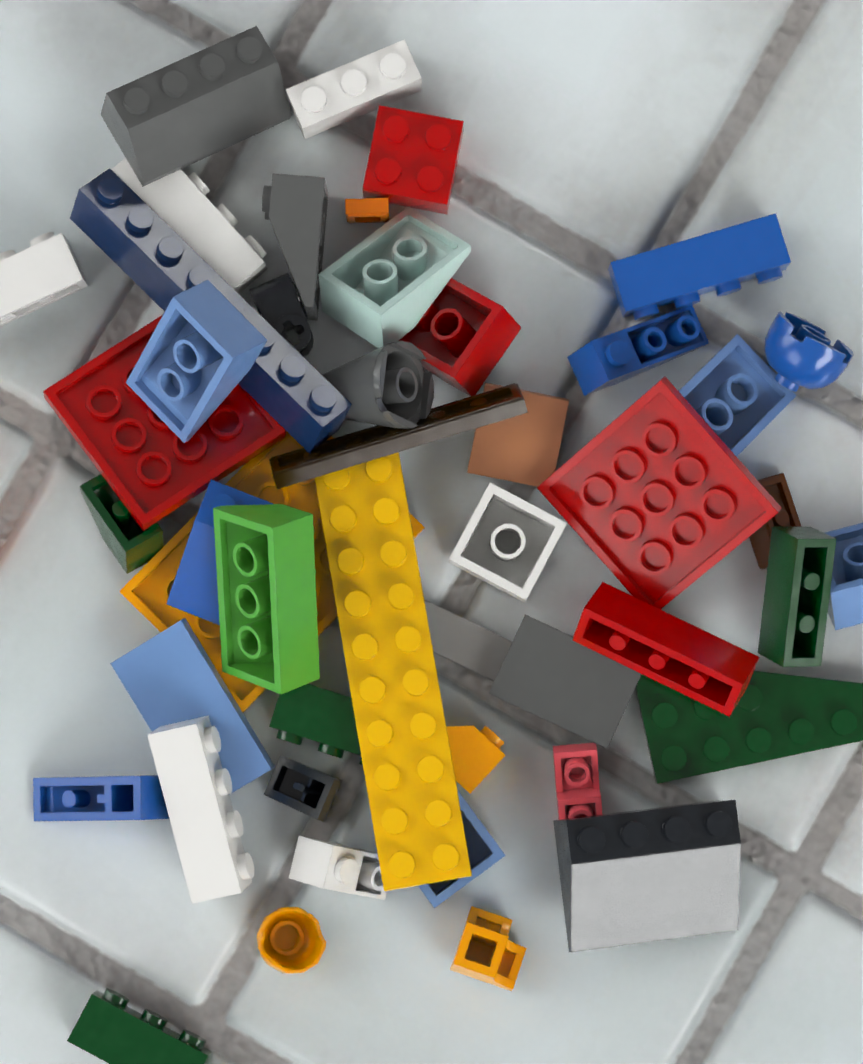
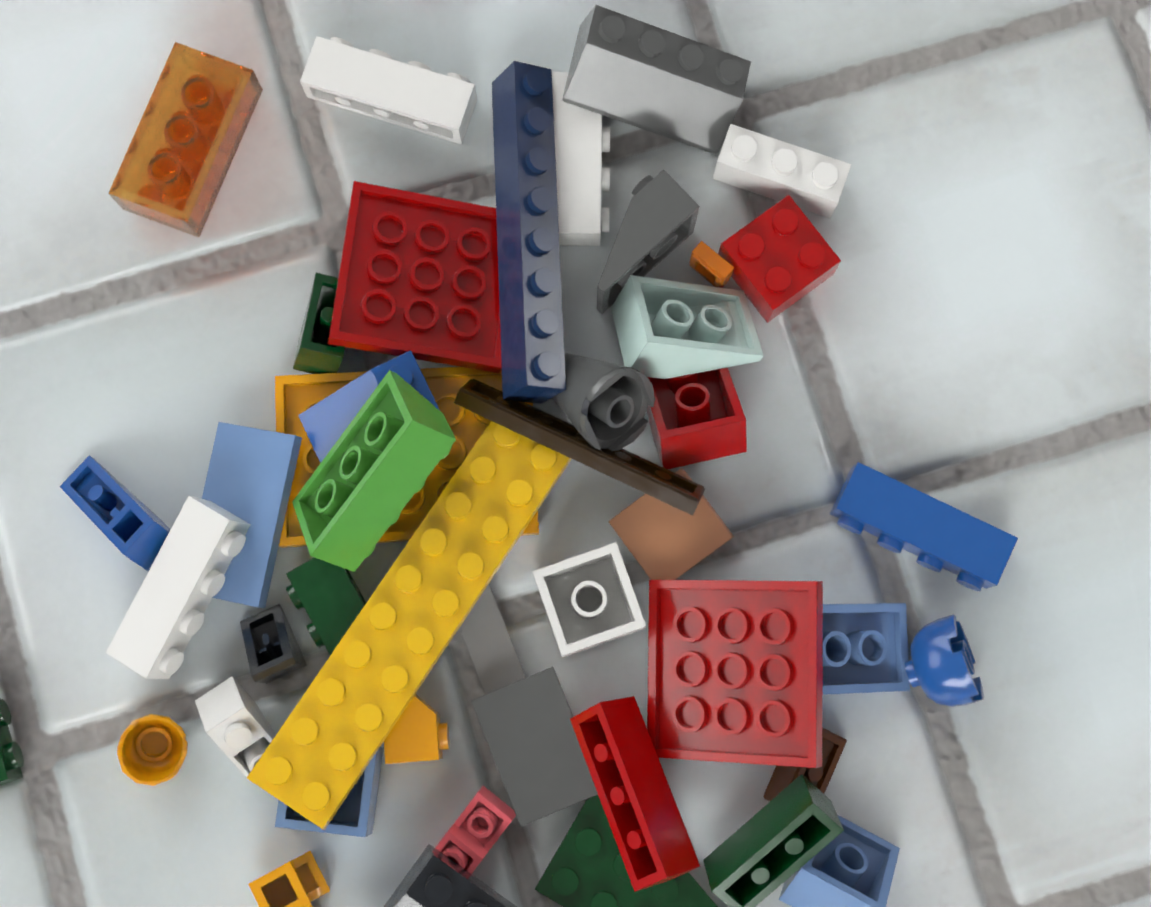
camera: 40 degrees right, 5 degrees down
(195, 358) = (482, 249): medium blue slope -> none
(282, 309) = (579, 285): black piece -> none
(636, 349) = (818, 545): blue slope -> none

